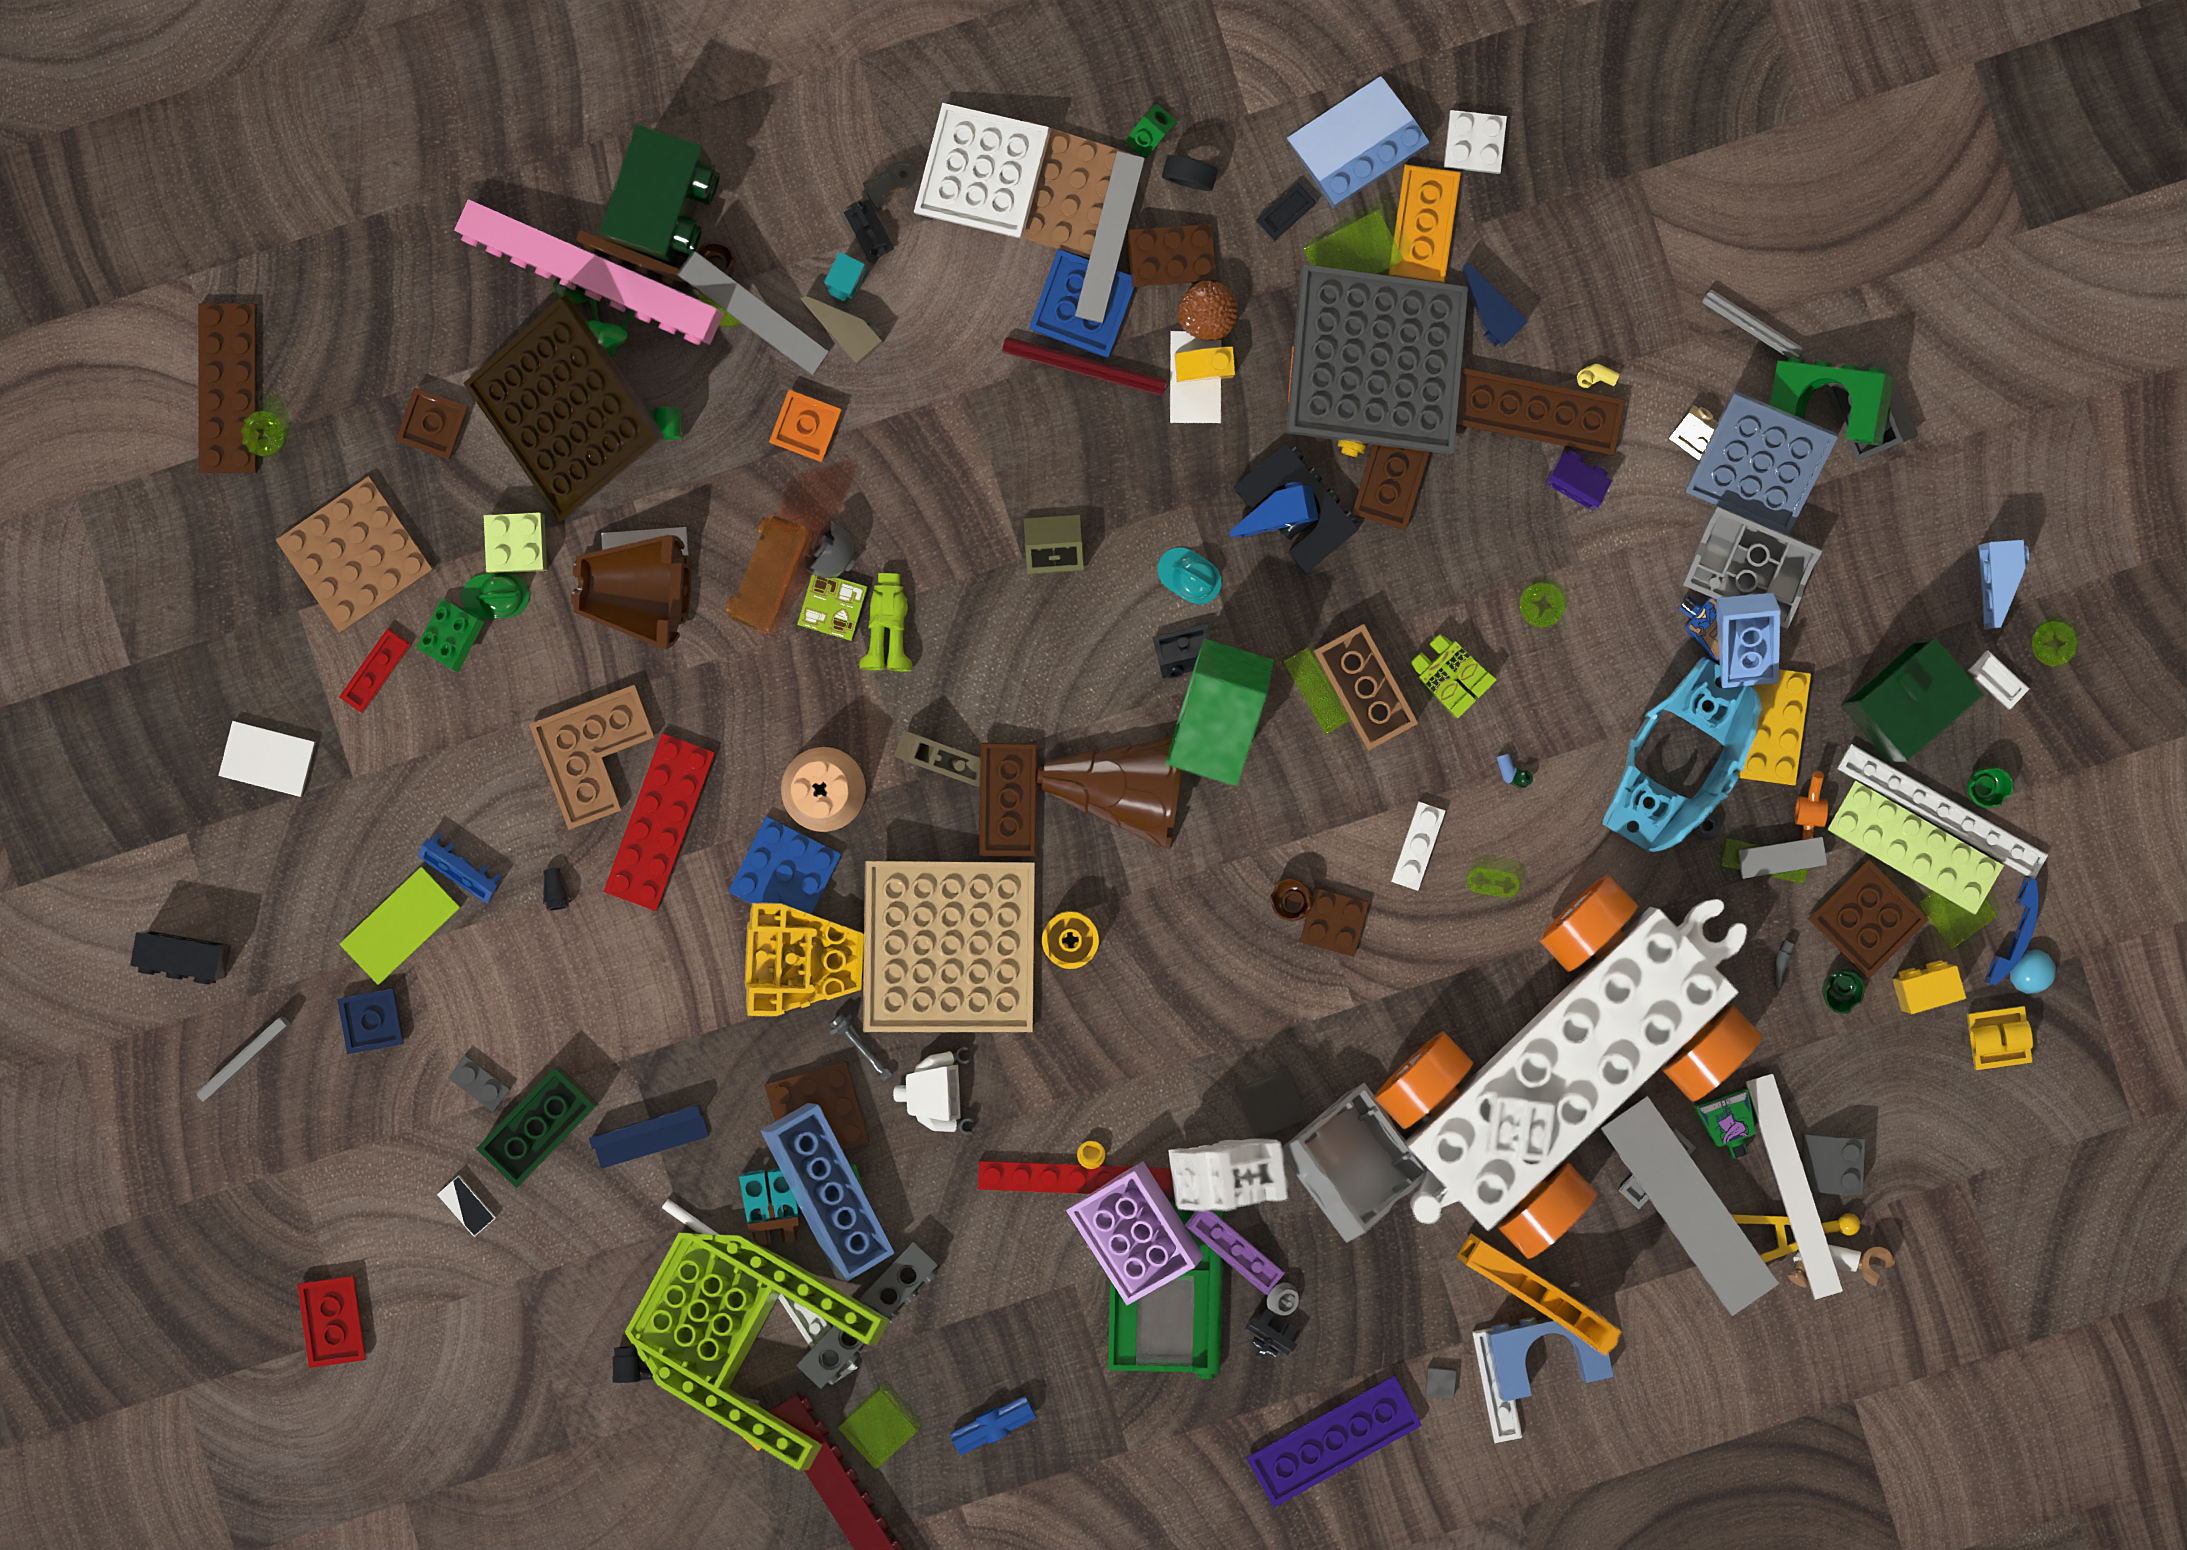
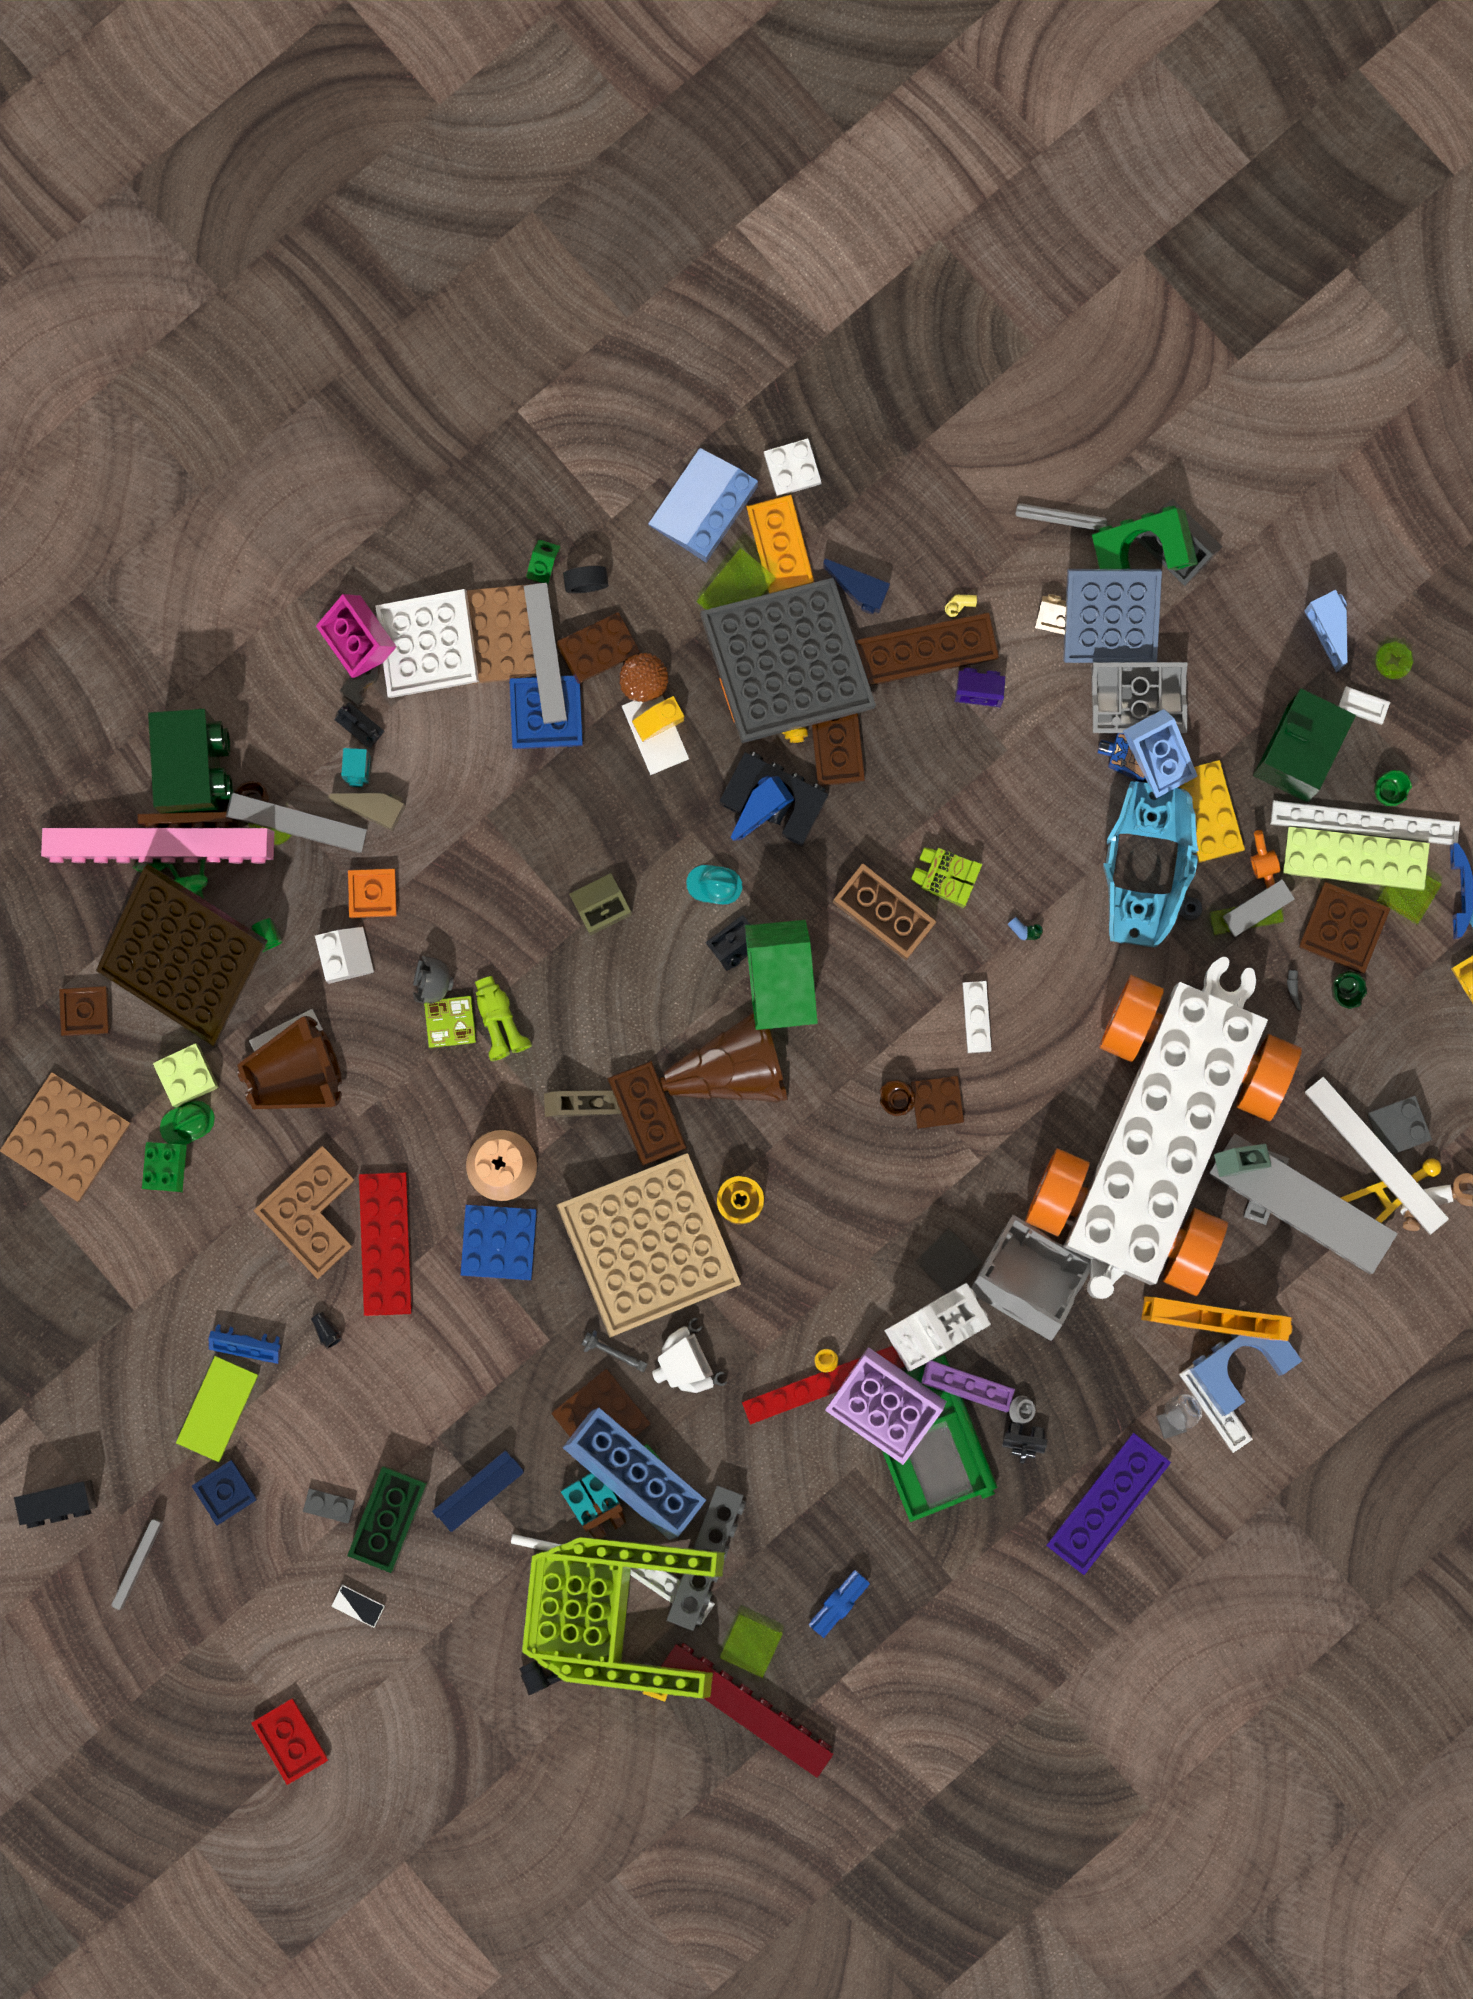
camera: 25 degrees left, 5 degrees down
(267, 758) = (61, 1323): white tile -> none
(375, 670) = (117, 1219): red tile -> none
(746, 481) = (344, 954): none -> white slope
(769, 573) = (391, 1016): clear orange windscreen -> none
(798, 959) = (536, 1304): yellow wedge -> none
(906, 128) = (355, 635): none -> dark pink slope
(1084, 366) = (566, 759): dark red axle -> none
(1286, 211) = (671, 579): black tile -> none
(1316, 691) = (848, 931): clear neon green tile -> none
(1459, 1376) = (1183, 1411): none -> clear hair
(1491, 889) = (1044, 1015): clear neon green beam -> none
(1520, 1128) = (1146, 1193): white slope -> none
(1530, 611) = (986, 802): clear neon green gear -> none
(1643, 1131) = (1242, 1160): none -> sand green slope
(1728, 1120) = (1304, 1126): torso -> none
(1928, 988) = (1413, 960): yellow brick -> none

